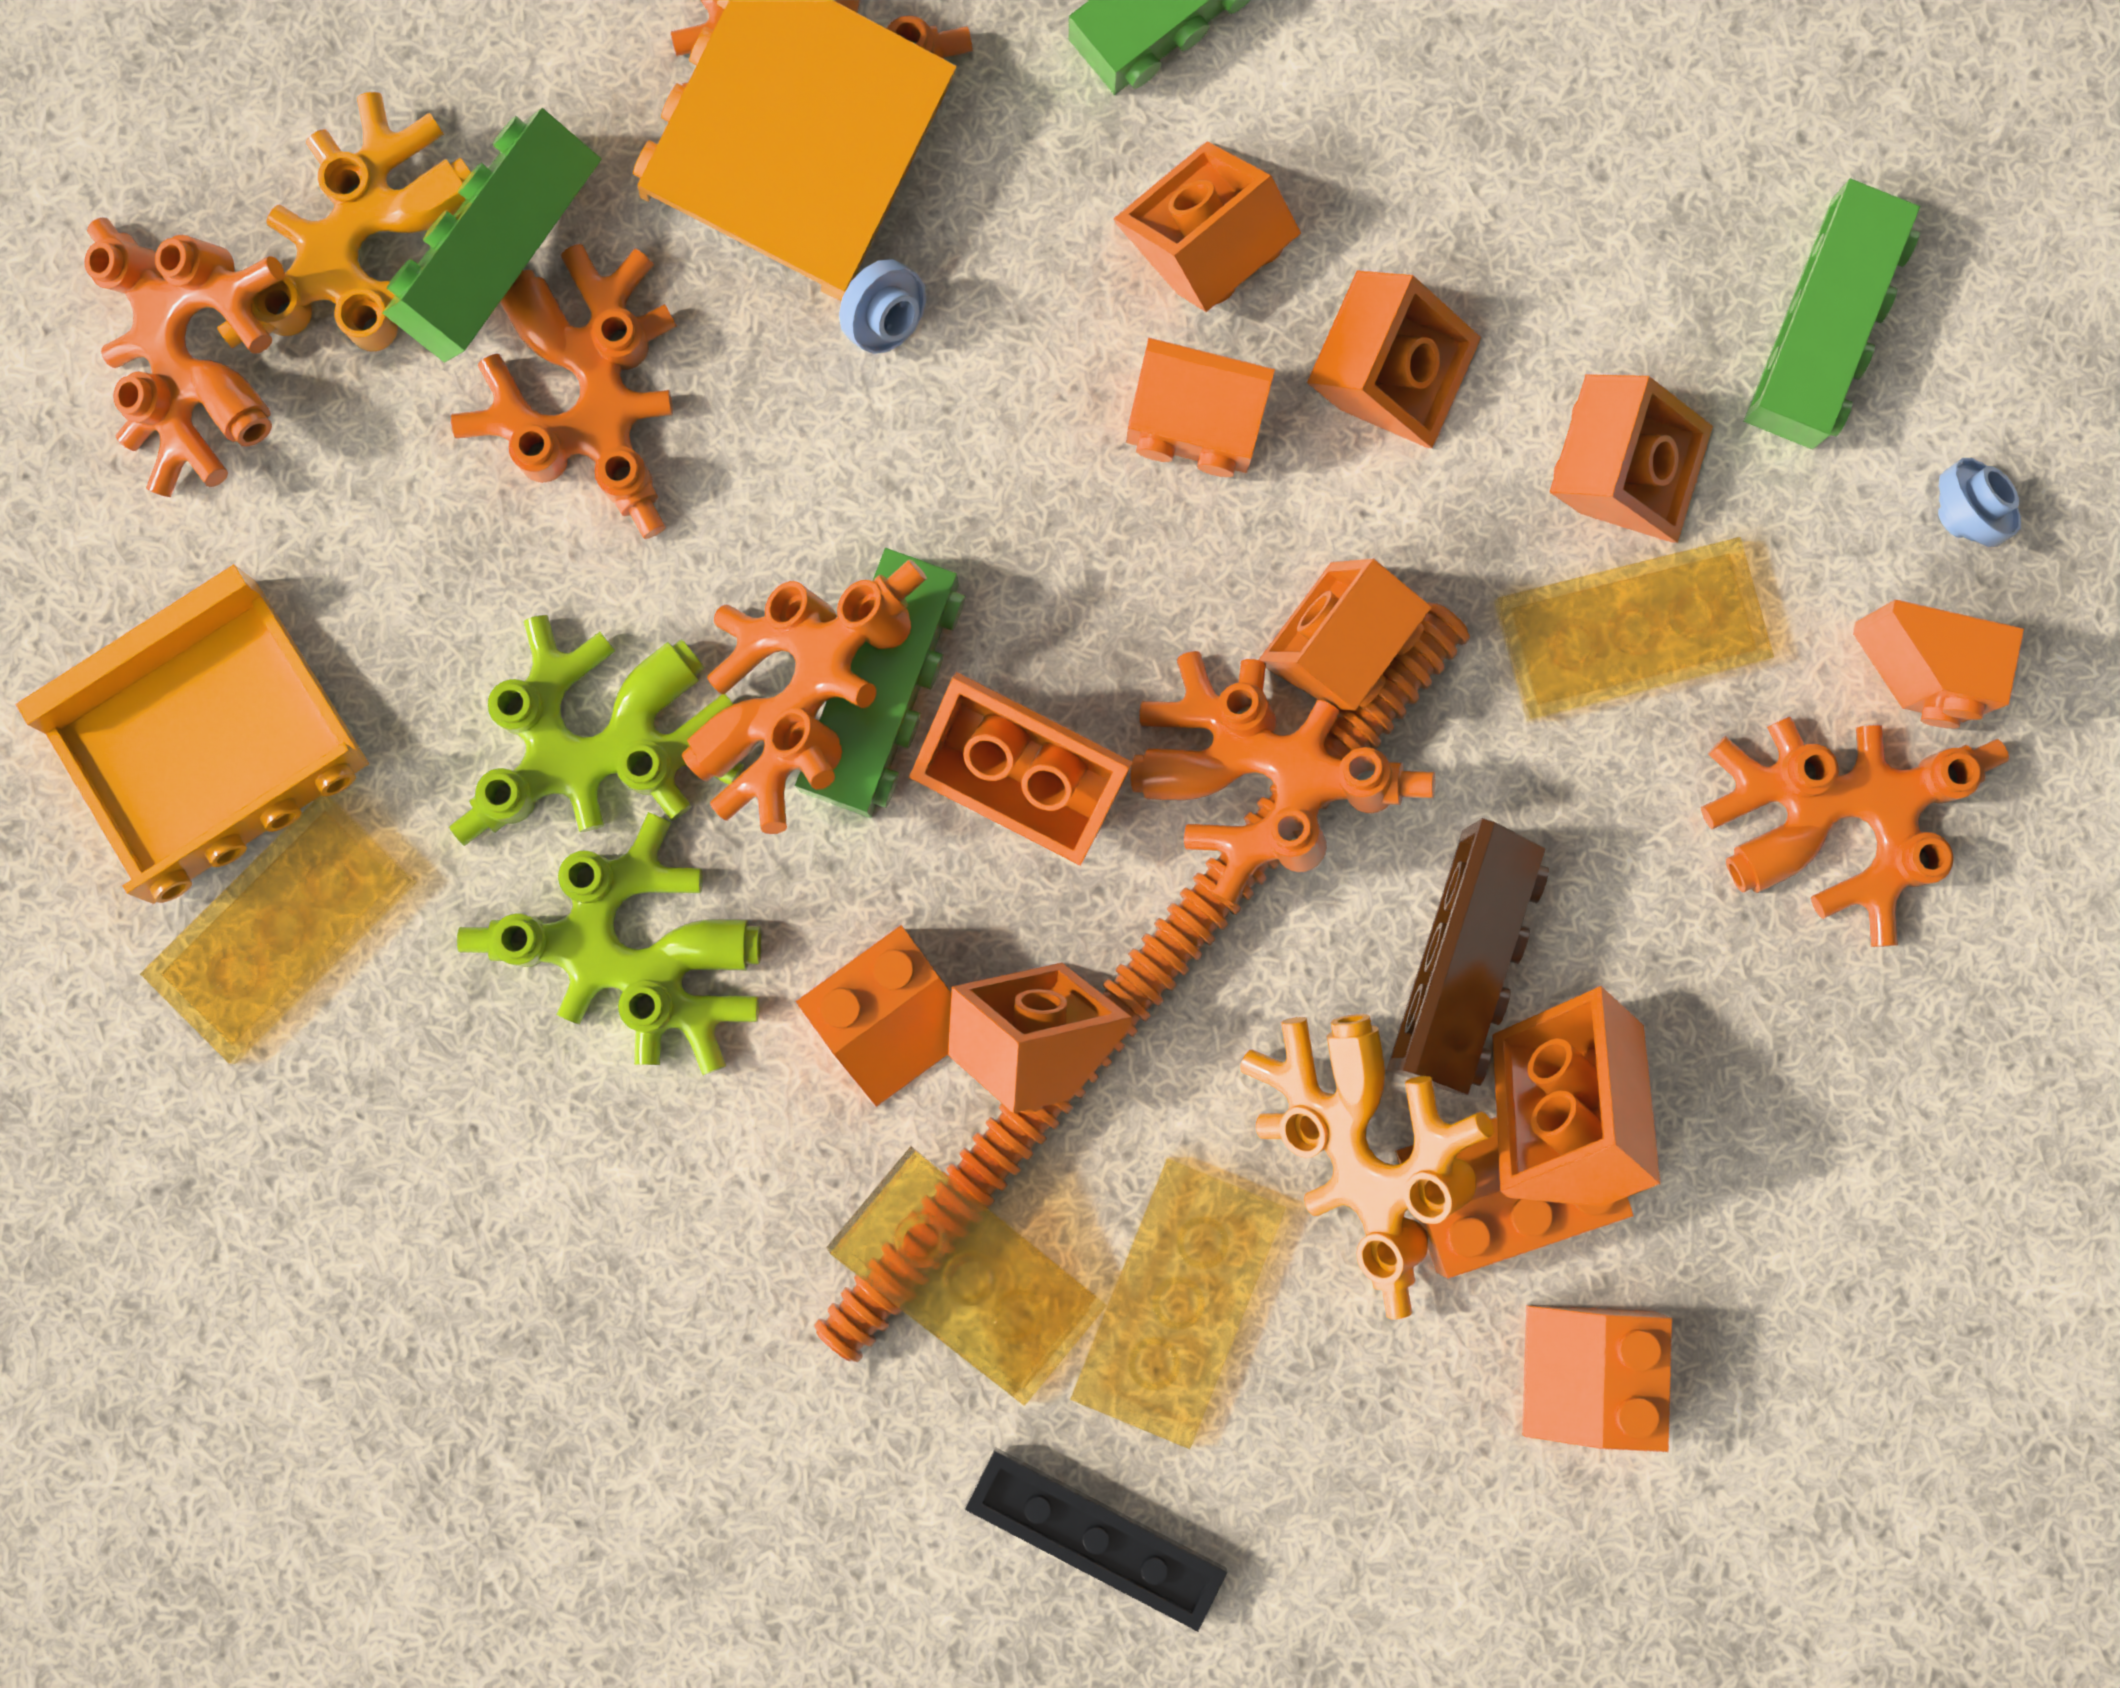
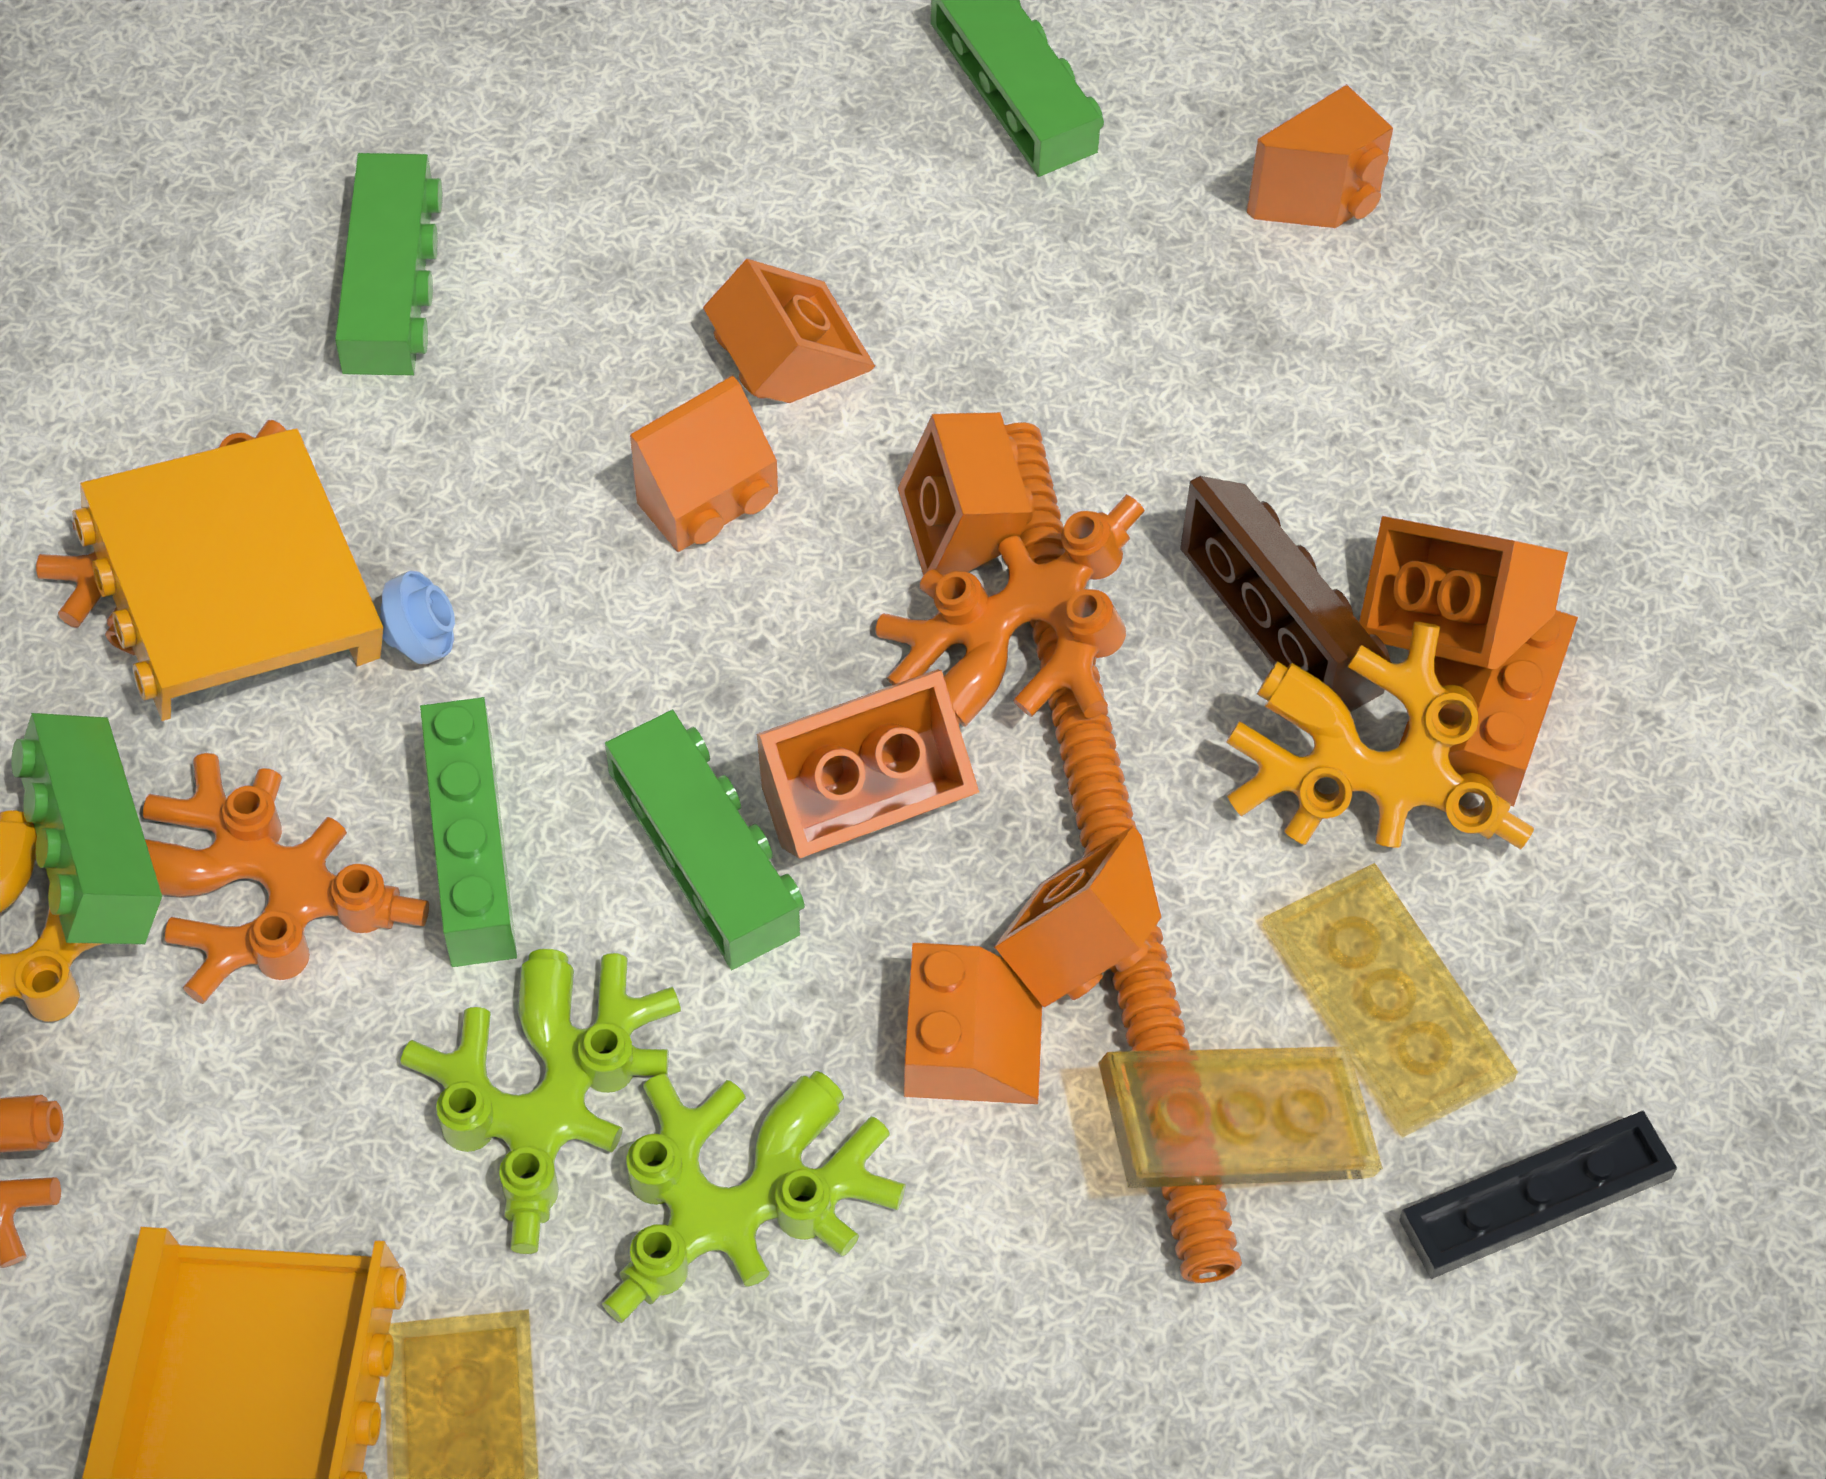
camera: 50 degrees left, 25 degrees down
(737, 506) = (468, 832): none -> bright green brick
(786, 723) = (680, 887): orange plant -> none
(1209, 224) = (574, 374): orange slope -> none
(1597, 1377) = (1687, 743): orange slope -> none
(1631, 455) = (998, 247): orange slope -> none
(1633, 629) = (1127, 339): clear yellow tile -> none
(1871, 791) = (1356, 311): orange plant -> none
(1978, 503) = (1229, 79): light blue plate -> none

